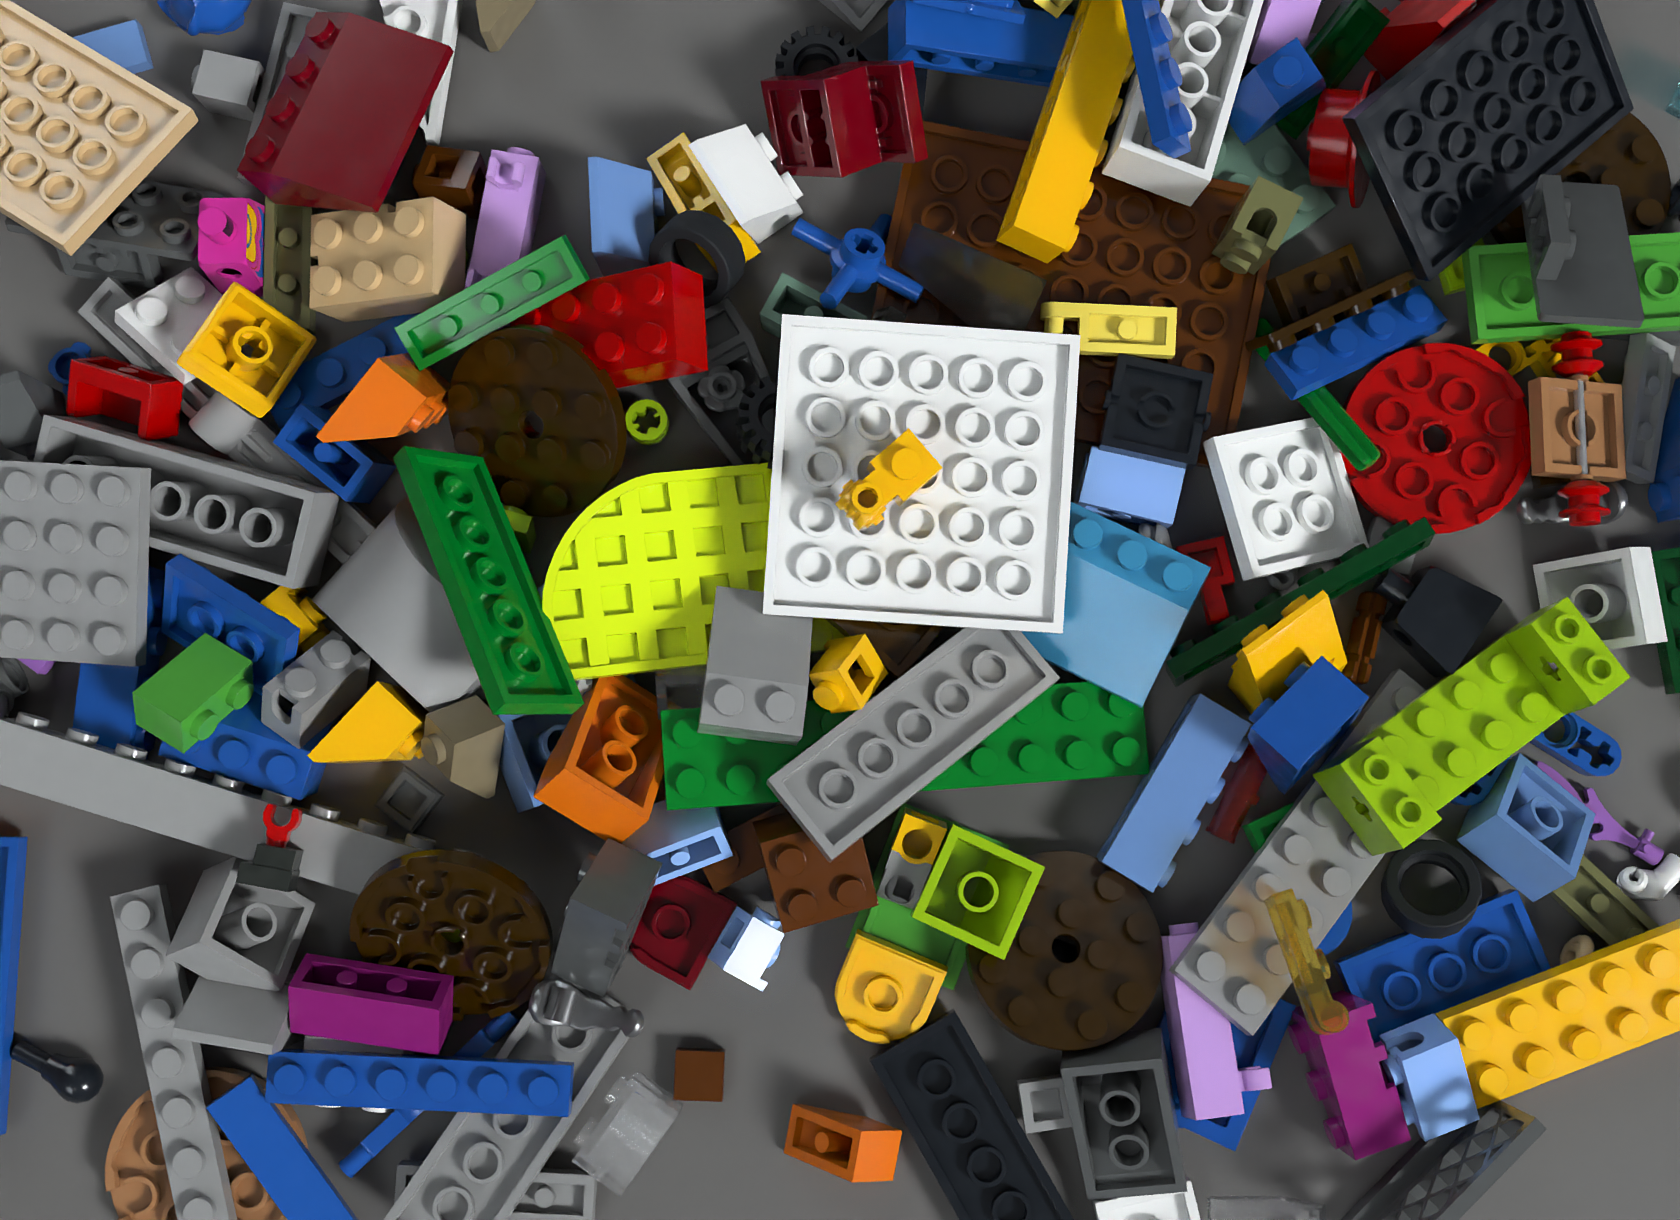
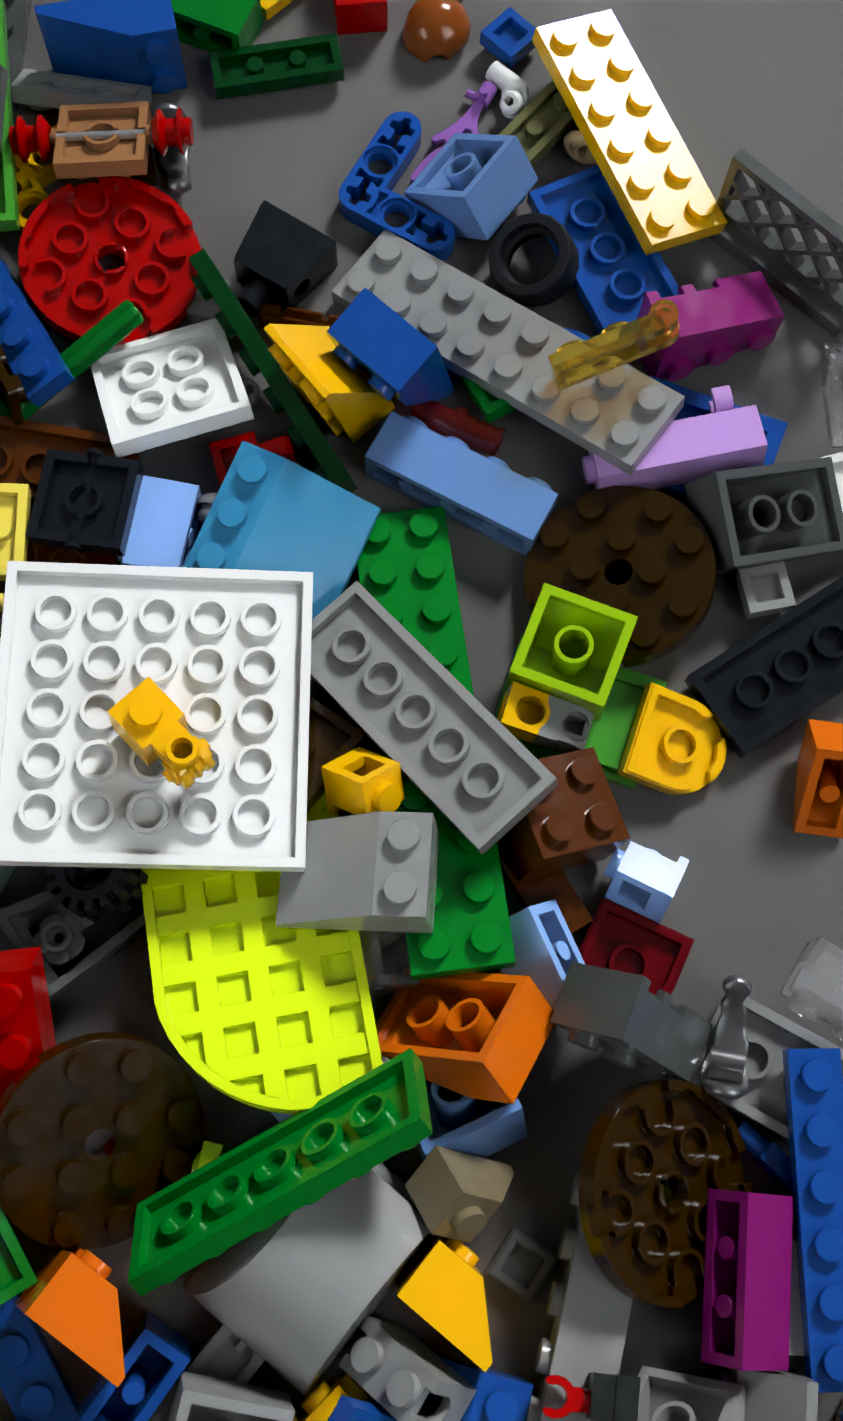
camera: 95 degrees left, 10 degrees down
(640, 409) = (86, 1010): lime bush -> none
(699, 1074) = (776, 926): reddish brown tile -> none
(1429, 1076) = (701, 254): light blue brick -> none
(1468, 725) = (380, 227): lime plate -> none
(1611, 591) = (263, 128): white slope -> none

